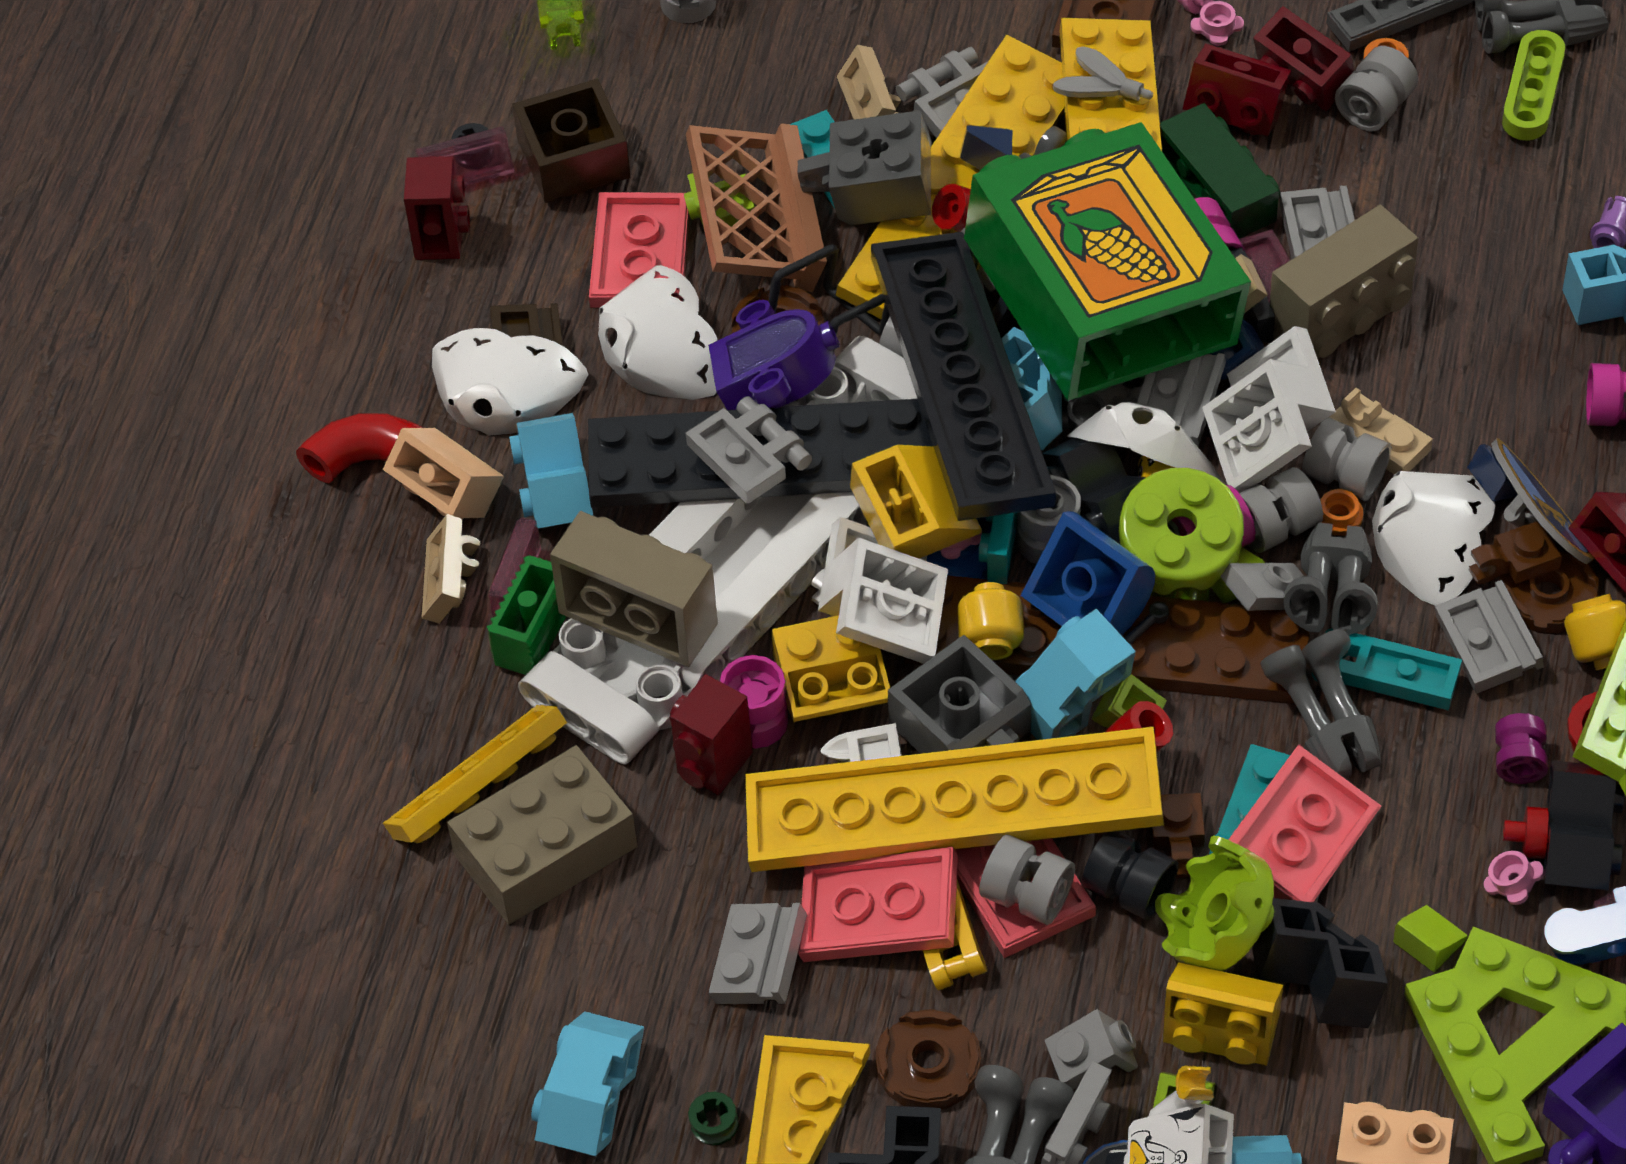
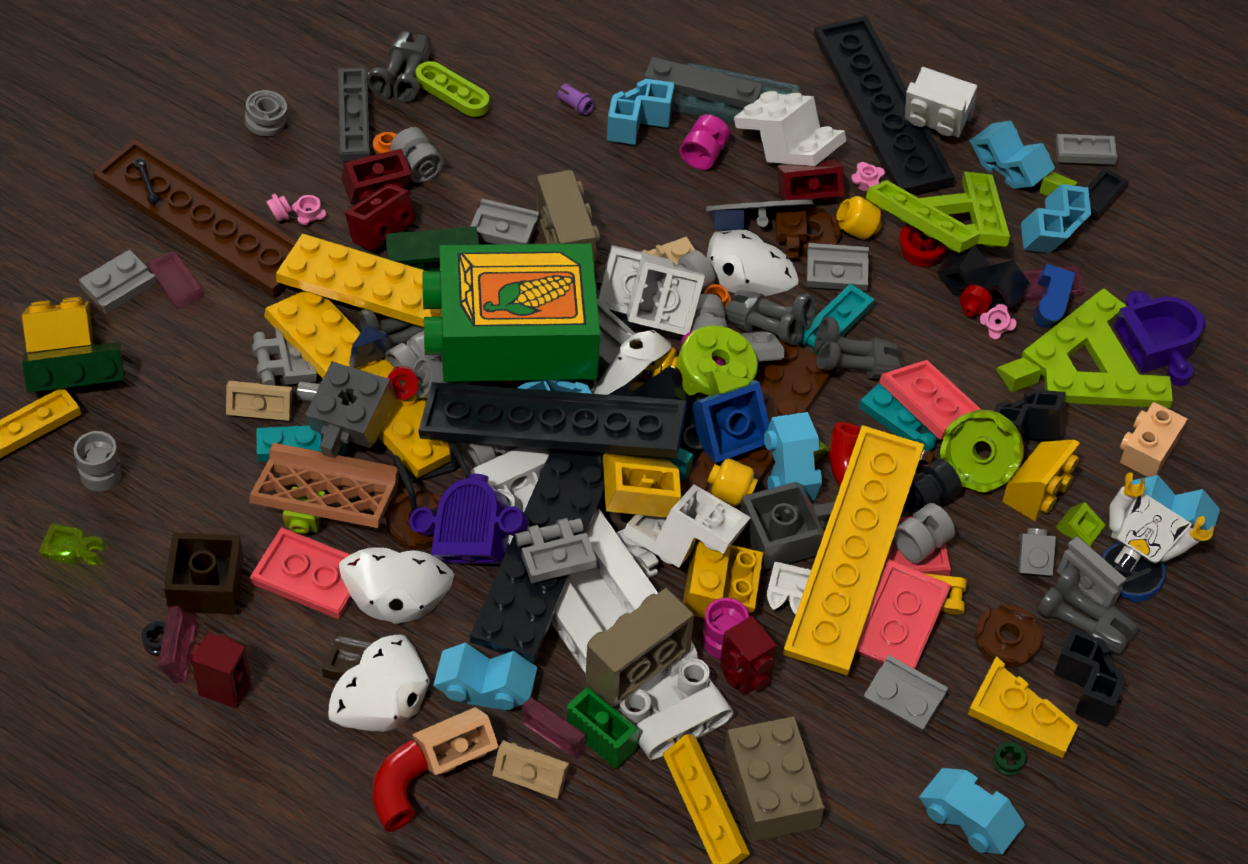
camera: 75 degrees left, 0 degrees up
(1105, 79) = (350, 267): light grey piece -> none
(1124, 531) = (722, 383): none -> lime slope
(1520, 756) = (921, 284): magenta wheel -> none

